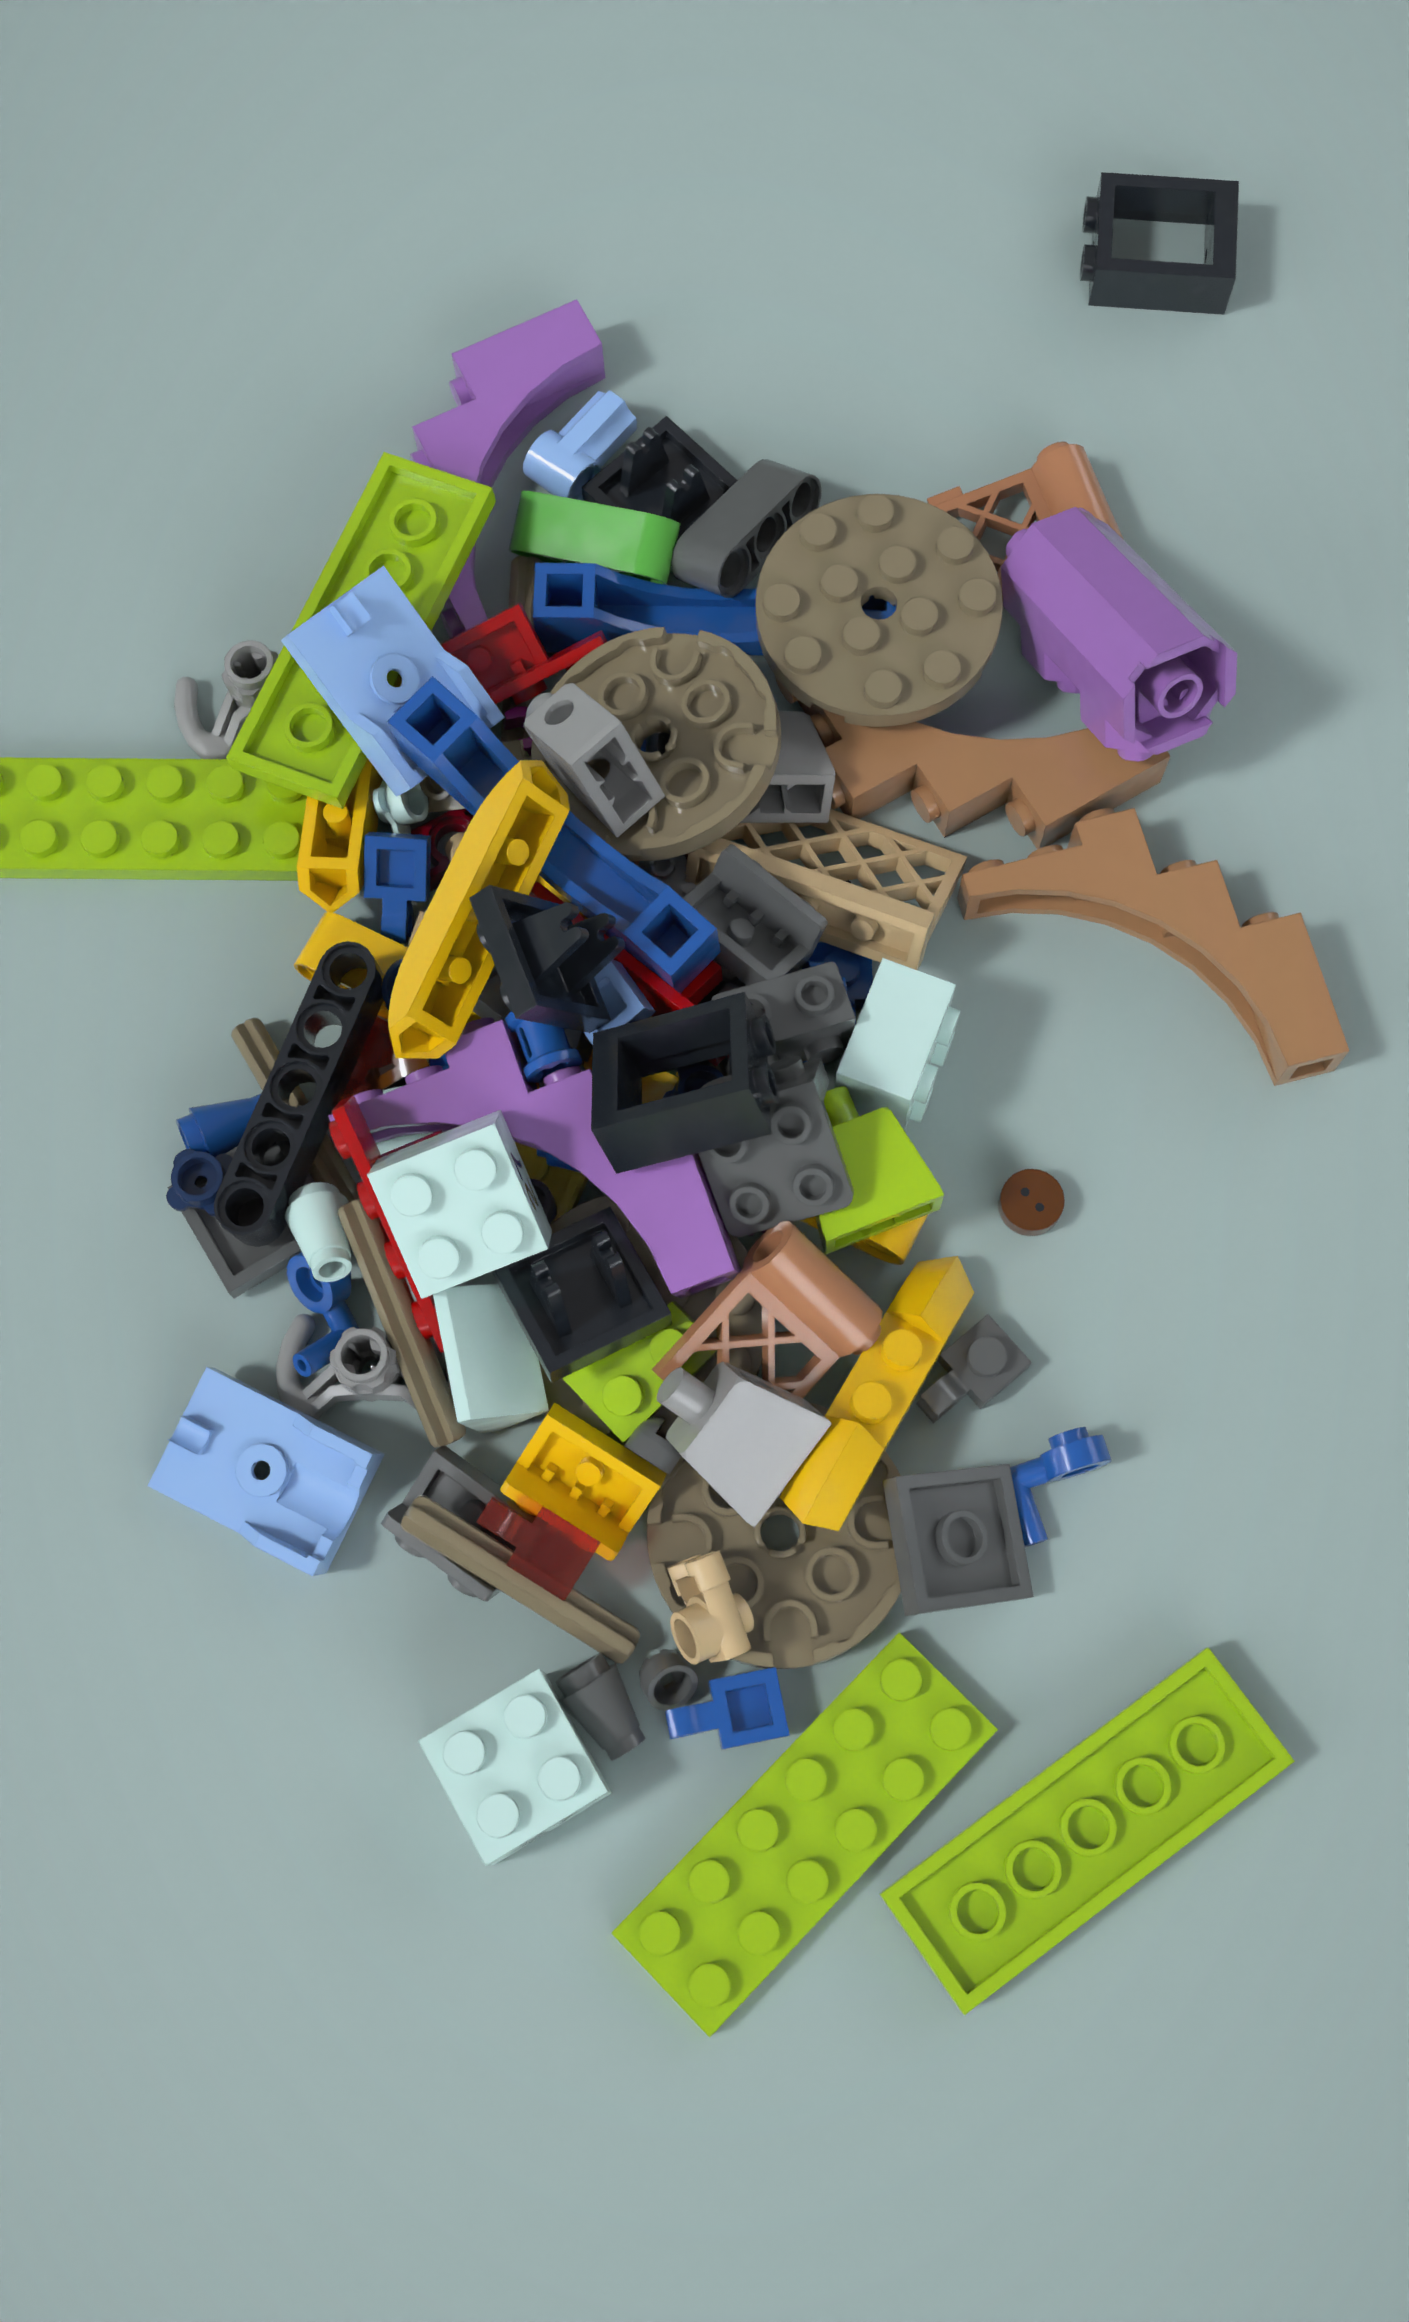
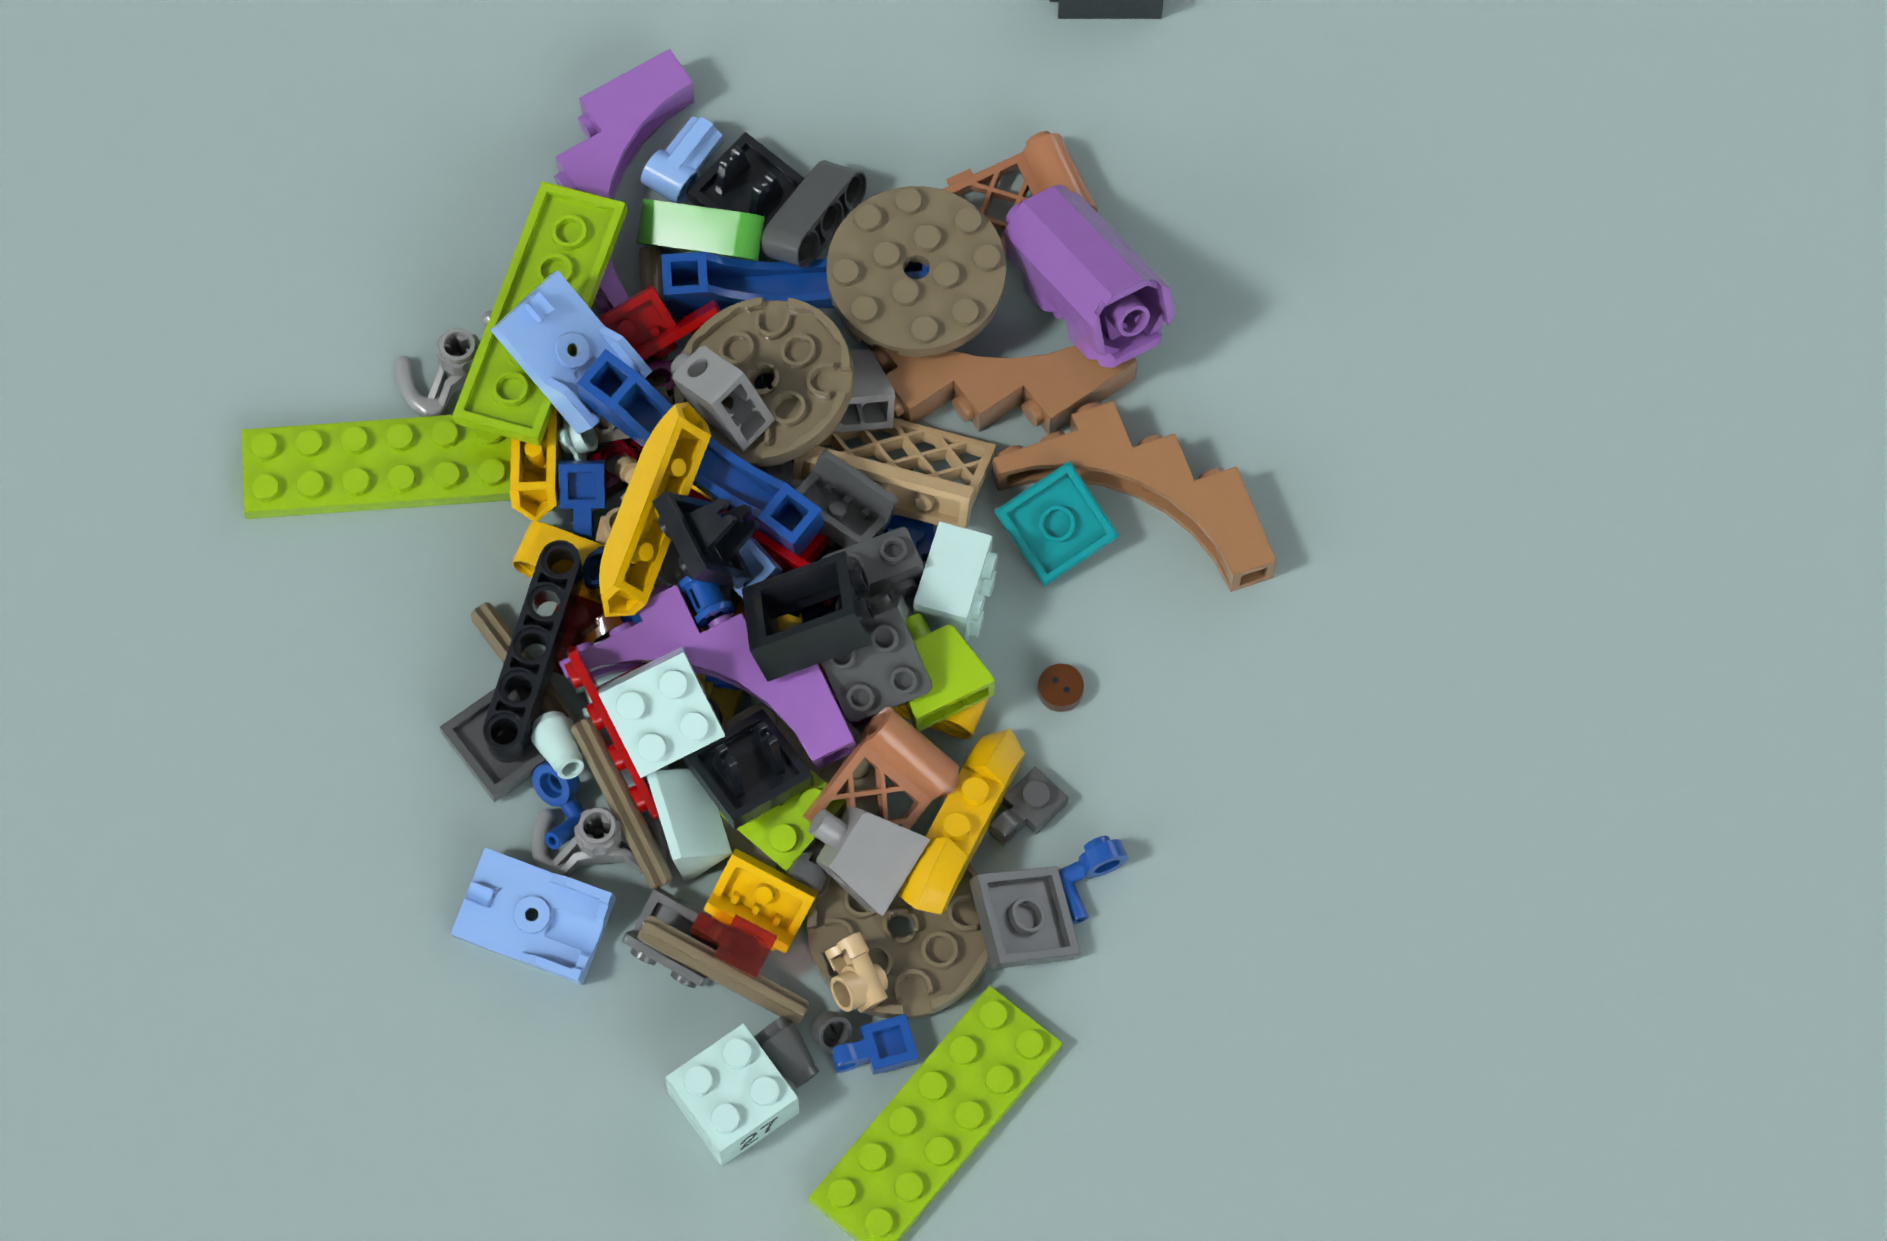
camera: 10 degrees left, 5 degrees down
(187, 1169) = (463, 707): dark blue plate -> none
(216, 1126) = (470, 682): blue cone -> none
(1043, 972) = (1056, 523): none -> teal tile
(1085, 1829) = (1126, 1101): lime plate -> none

